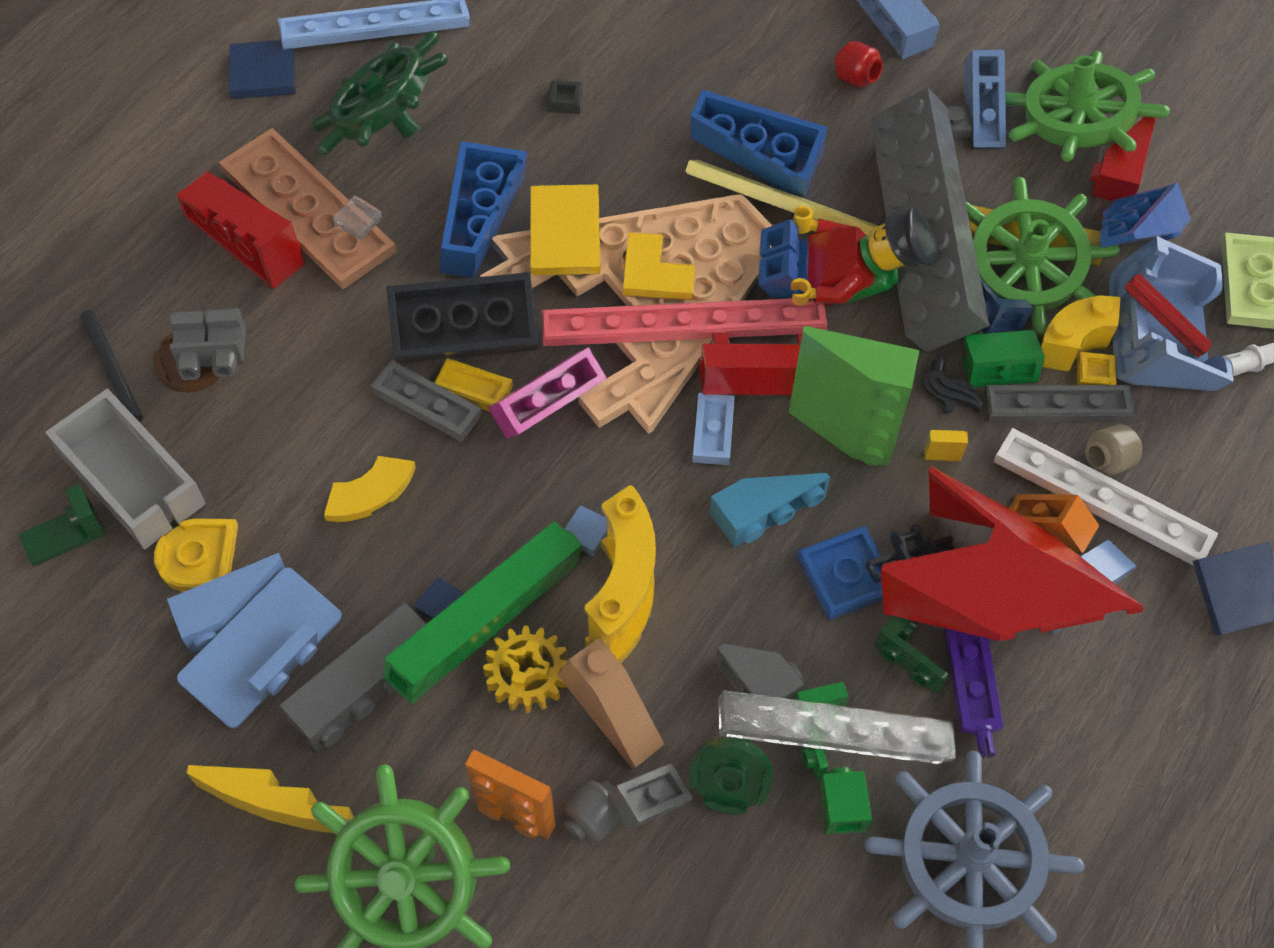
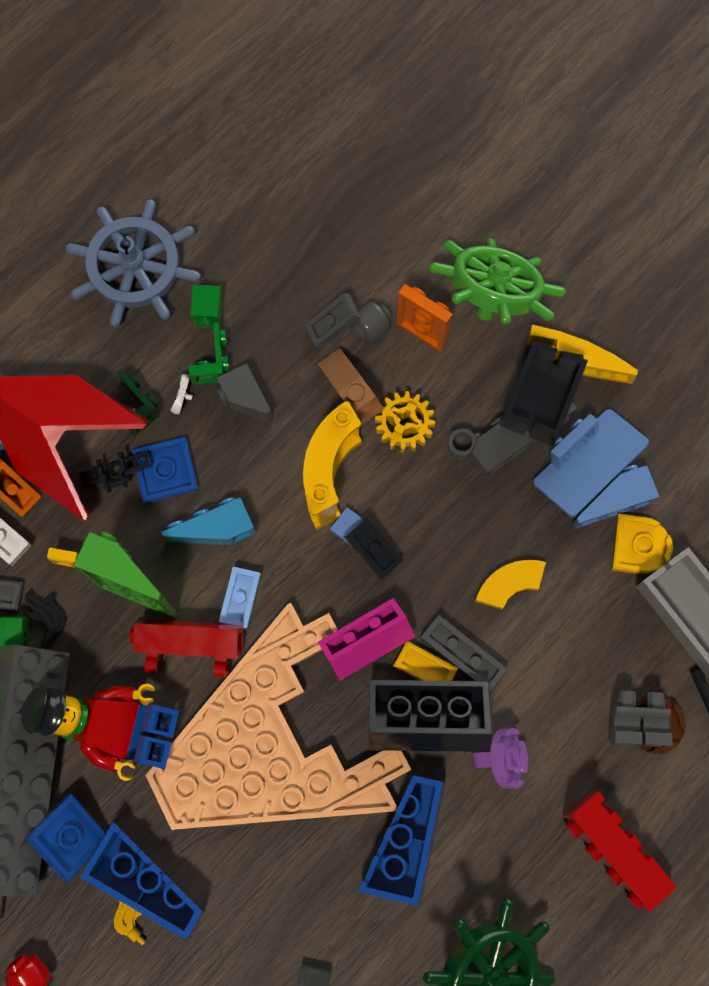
camera: 170 degrees left, 15 degrees up
(290, 186) = (561, 874): nougat plate -> none
(325, 697) = (543, 393): none -> black piece
(358, 217) = (514, 843): clear tile -> none
(368, 290) = (507, 758): none -> medium lavender tile
(437, 598) = (461, 483): dark blue tile -> none
(481, 612) = (430, 457): green brick -> none
(552, 499) = (373, 548): none -> black plate
(565, 230) = (333, 805): yellow tile -> none
(650, 277) = (270, 746): yellow tile -> none
(679, 321) = (251, 694): coral tile -> none
(731, 774) = (276, 328): dark green tile -> none
(771, 195) = (136, 821): light yellow tile -> none
(835, 728) = (202, 344): clear plate -> none
(852, 653) = (181, 395): none -> white piece
(853, 168) = (66, 837): none -> blue tile
(974, 688) = (99, 373): dark purple plate -> none

